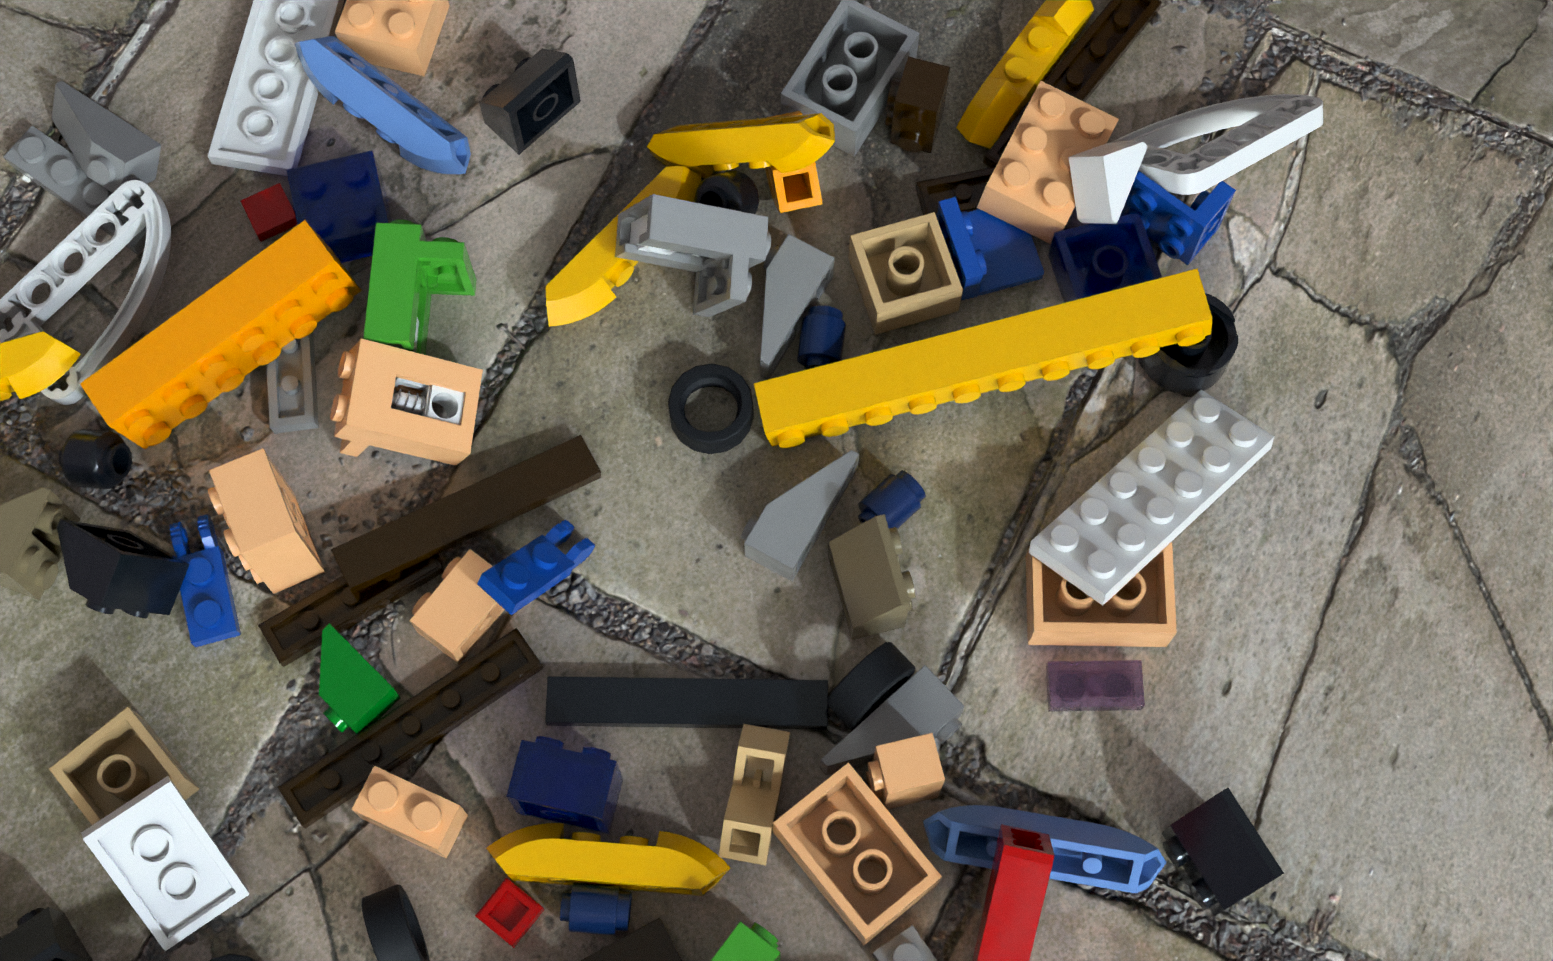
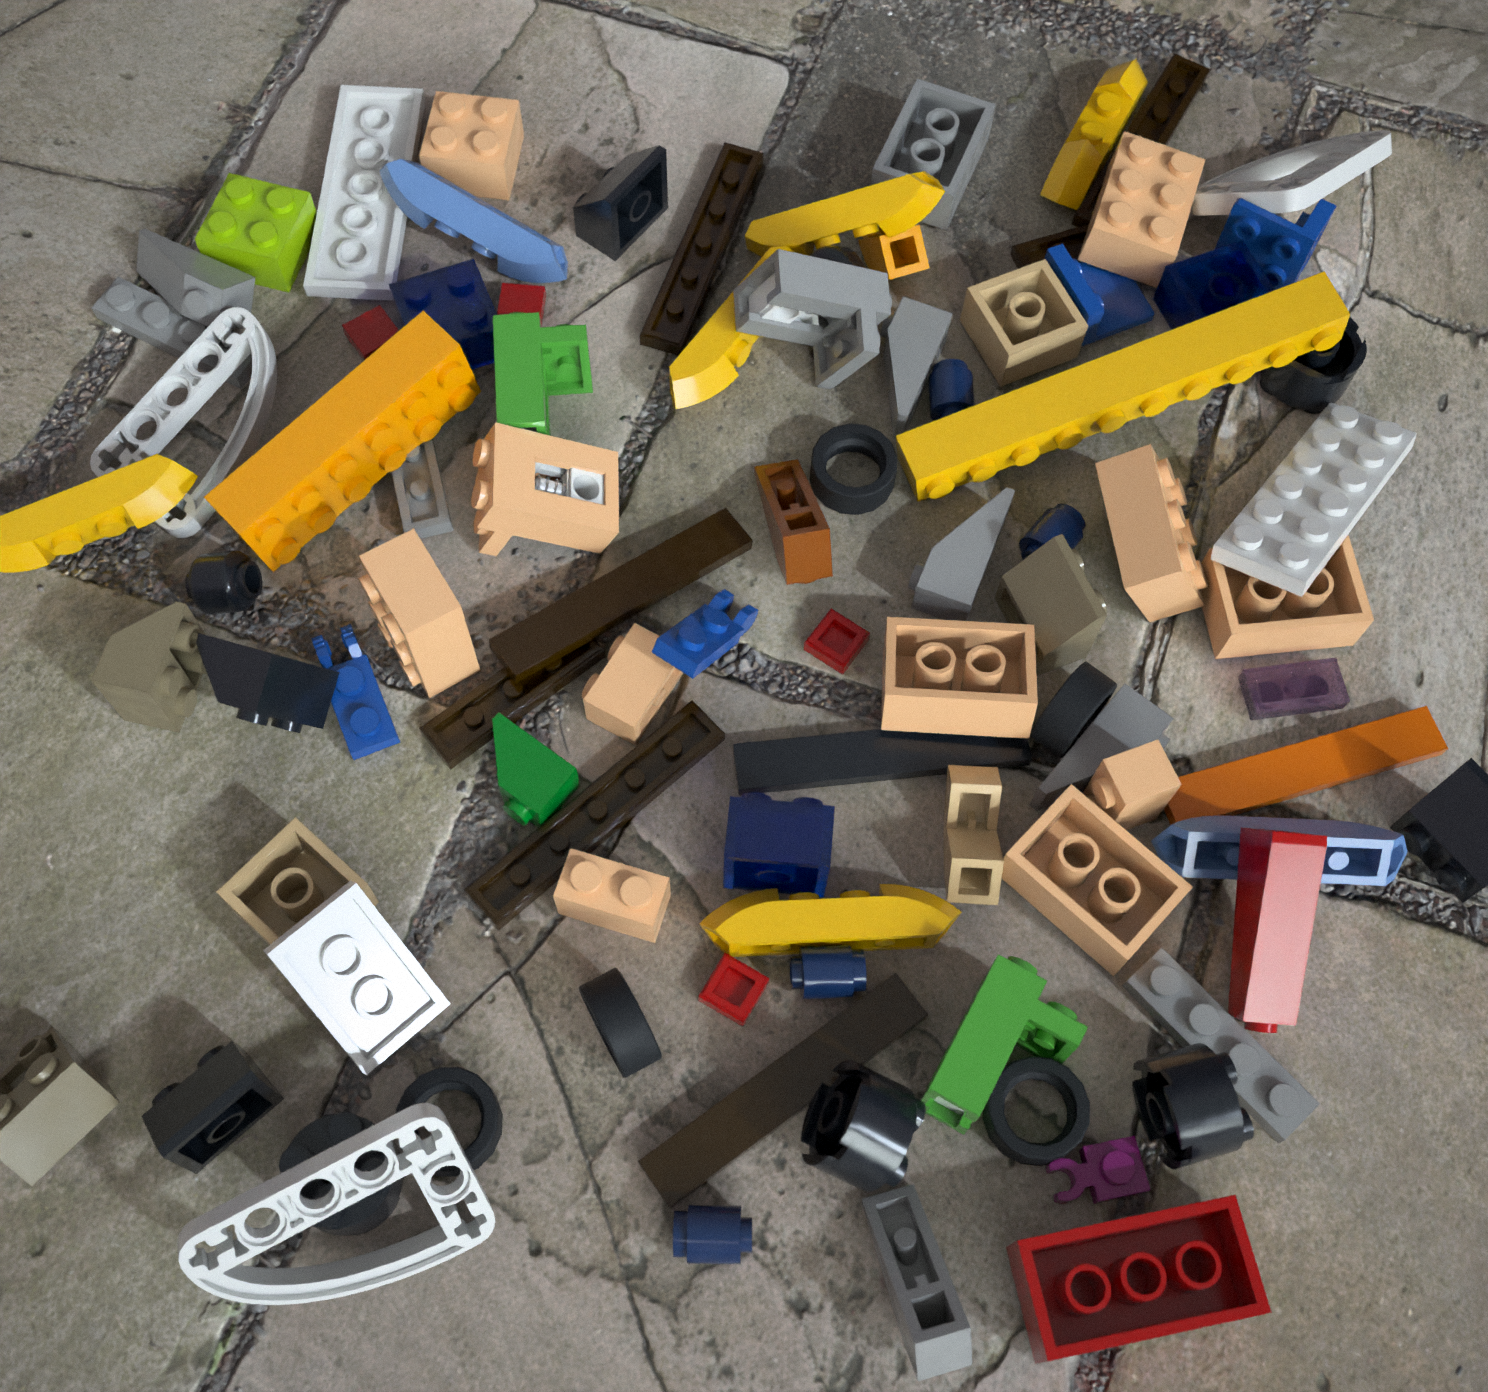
camera: 10 degrees left, 5 degrees down
(171, 93) = (259, 230): none -> lime brick
(417, 197) = (522, 299): none -> red tile
(606, 151) = (701, 249): none -> dark brown tile
(642, 457) = (794, 522): none -> dark orange slope
(665, 583) = (836, 641): none -> red tile
(765, 640) = (959, 677): none -> light nougat brick
(917, 105) = (1006, 170): dark brown brick -> none
(980, 516) = (1151, 533): none -> light nougat brick
(1088, 765) = (1307, 766): none -> orange tile
(1104, 179) = (1208, 212): white slope -> none

